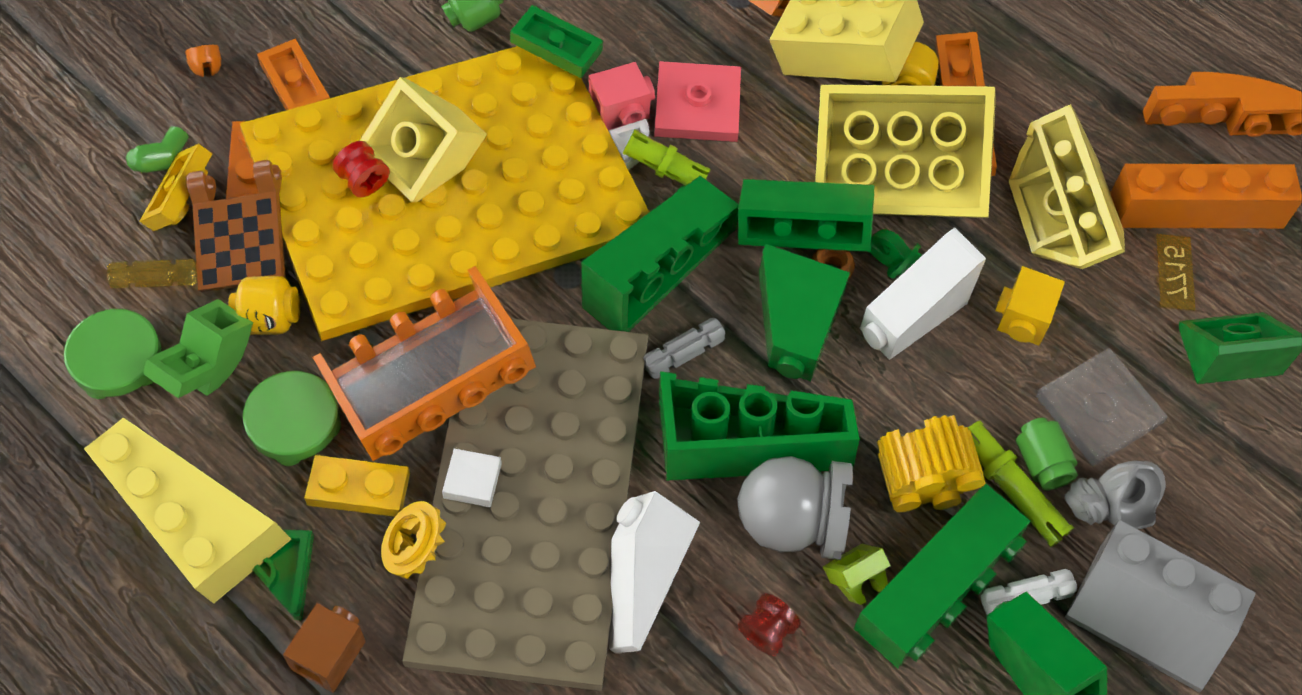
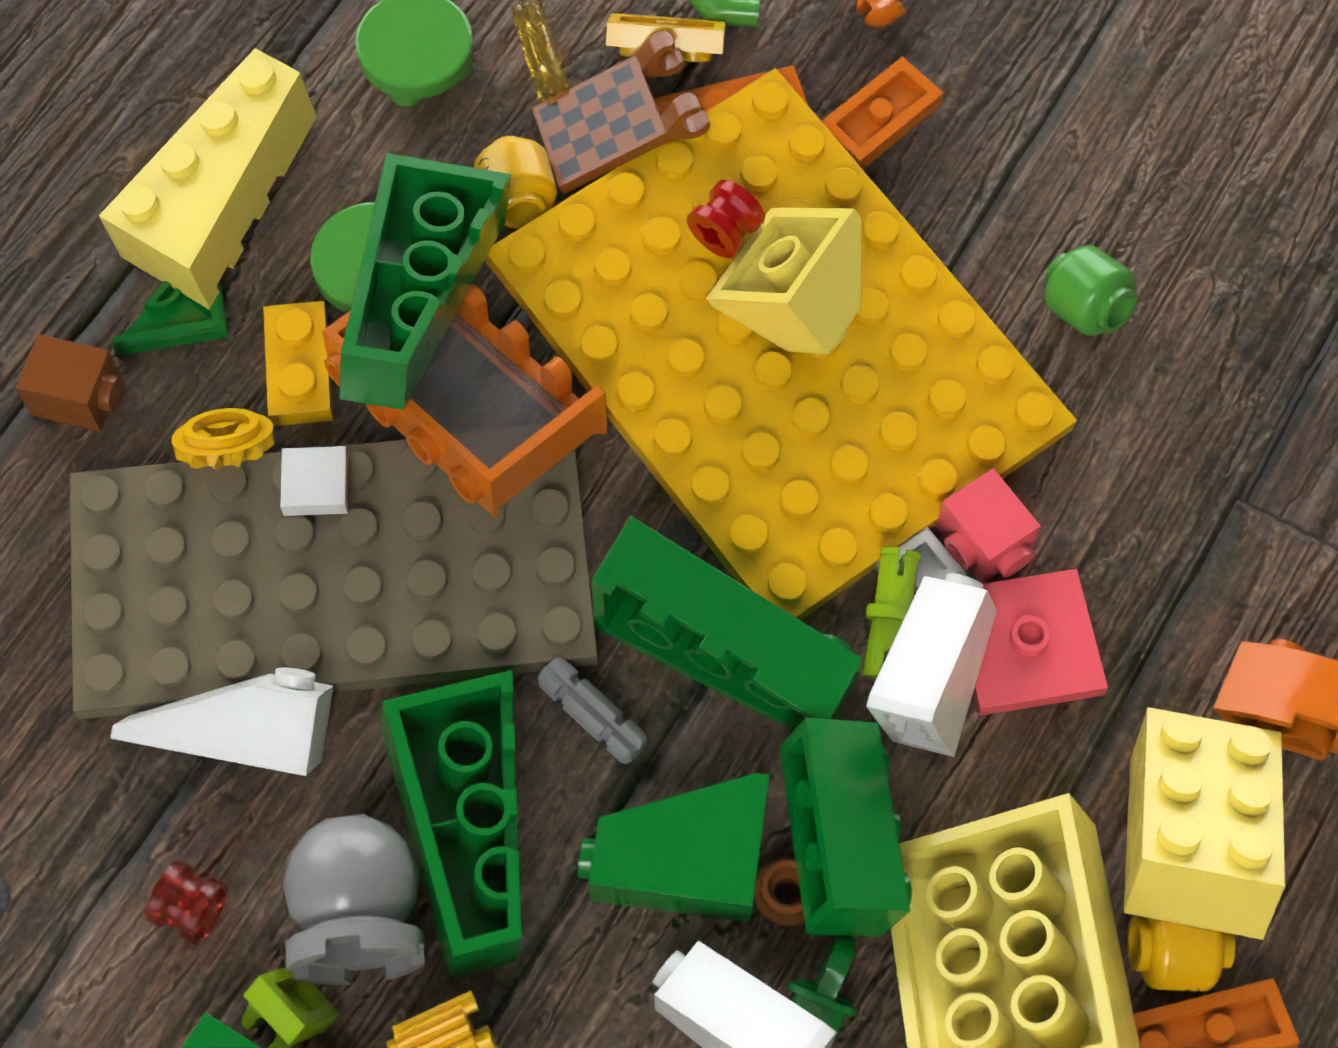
camera: 80 degrees right, 5 degrees up
(207, 351) = (410, 126): bright green brick -> none
(346, 357) = (417, 265): none -> green wedge
(556, 41) = (1039, 411): green plate -> none
(713, 136) = (934, 664): none -> white slope

